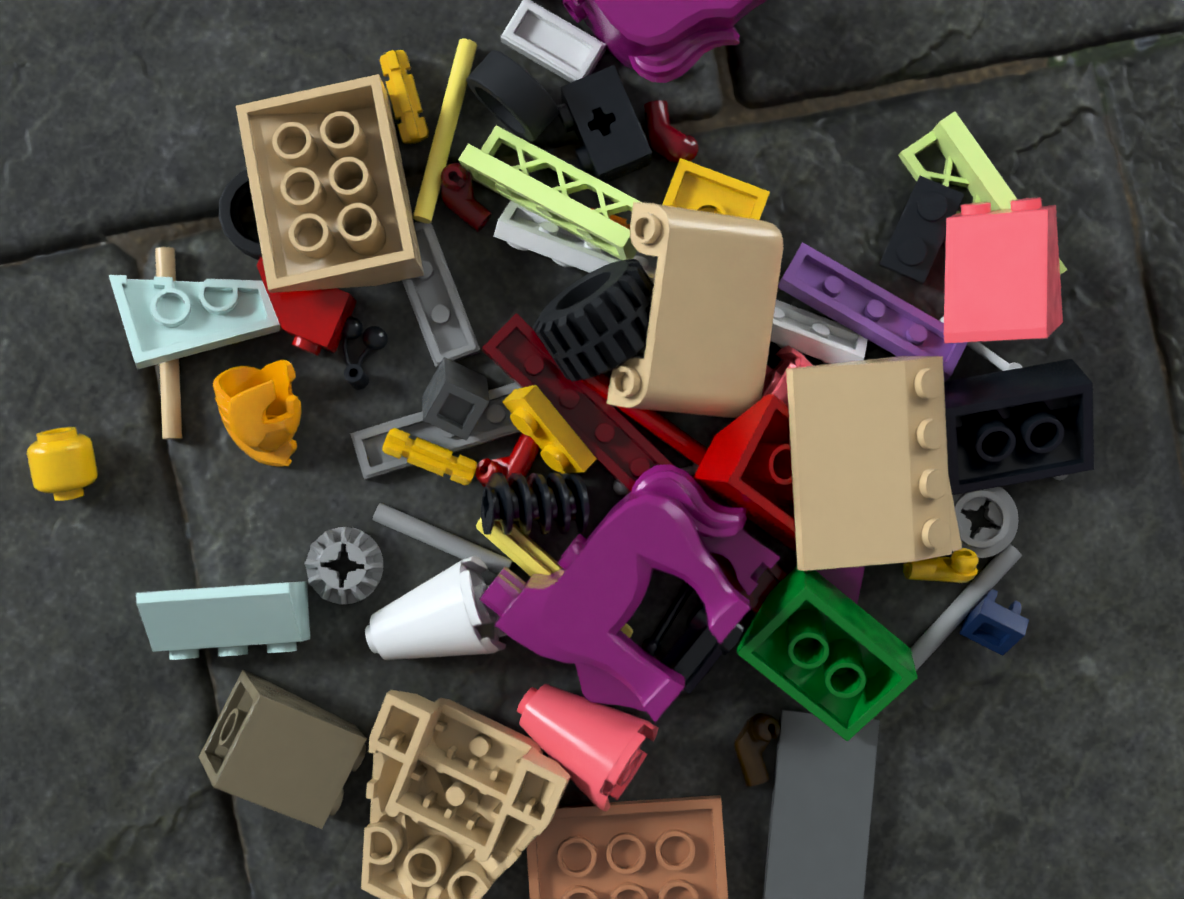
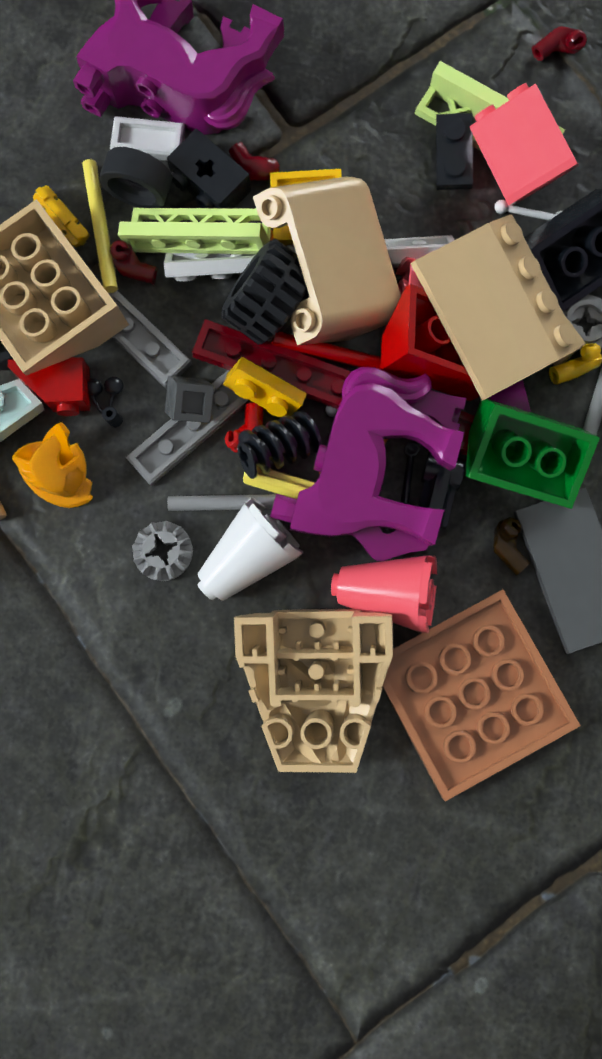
camera: 25 degrees left, 5 degrees down
(226, 618) = (93, 620): light aqua slope -> none
(281, 751) = (177, 698): dark tan slope -> none
(429, 456) = (188, 445): yellow axle -> none
(867, 308) = (438, 215): medium lavender plate -> none
(1124, 143) = (560, 40): none -> dark red arm

